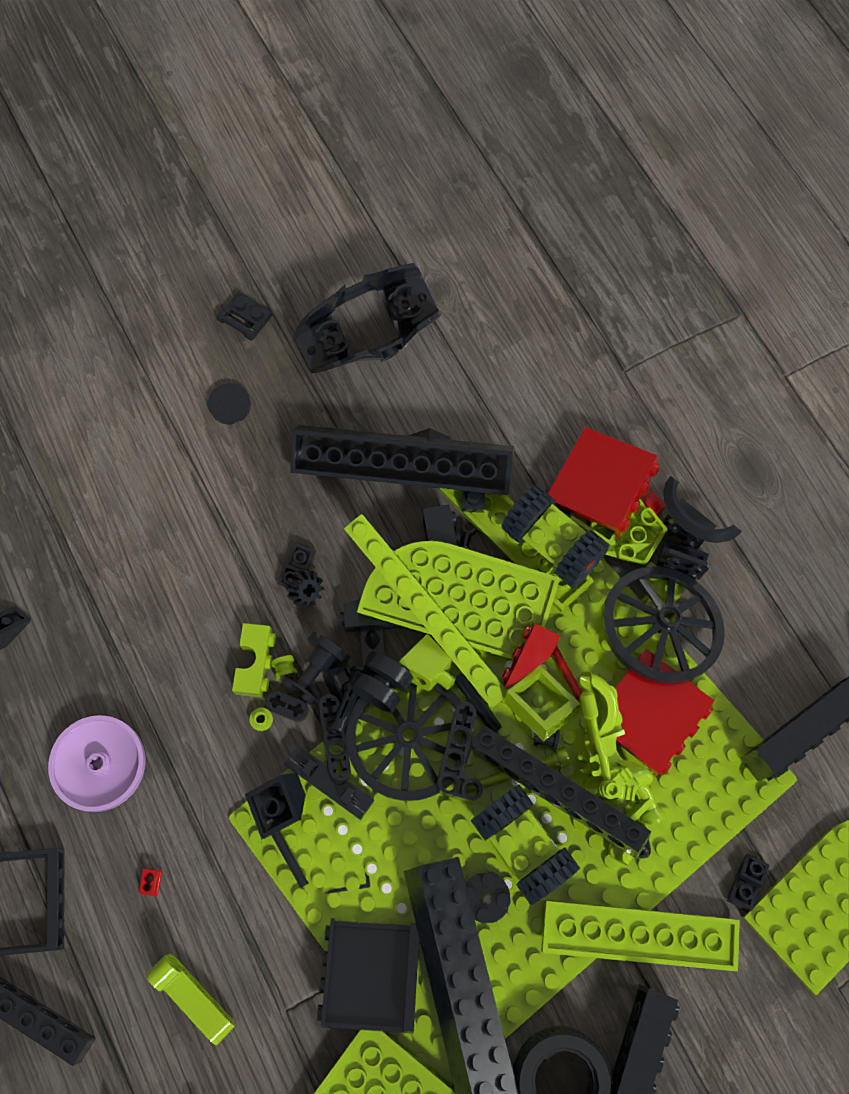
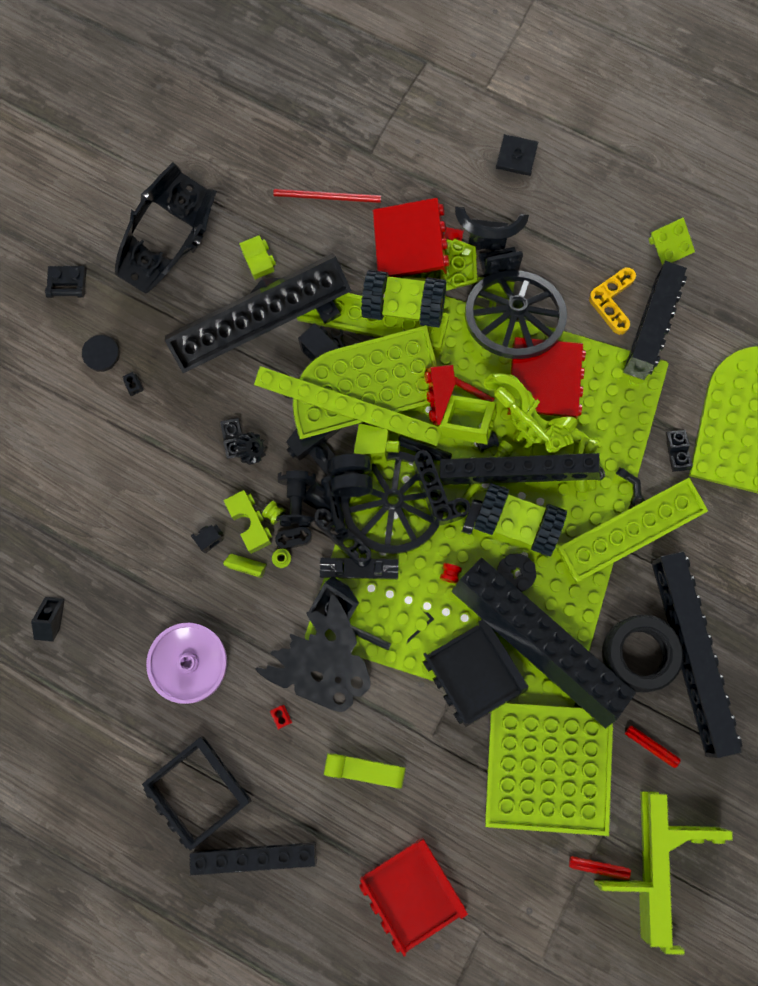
camera: 30 degrees left, 5 degrees up
(204, 650) = (208, 537): none -> black brick
(221, 702) = (245, 565): none -> lime slope
(233, 850) = (323, 656): none -> black piece
(241, 460) = (127, 378): none -> black piece
(417, 851) = (450, 573): none -> red wheel
(440, 404) = (257, 257): none -> lime brick
(478, 806) = (472, 516): none -> black beam
(551, 386) = (327, 195): none -> red piece
(677, 885) = (636, 484): none -> black arm
(773, 461) = (517, 155): none -> black plate
(776, 666) = (607, 296): none -> yellow beam

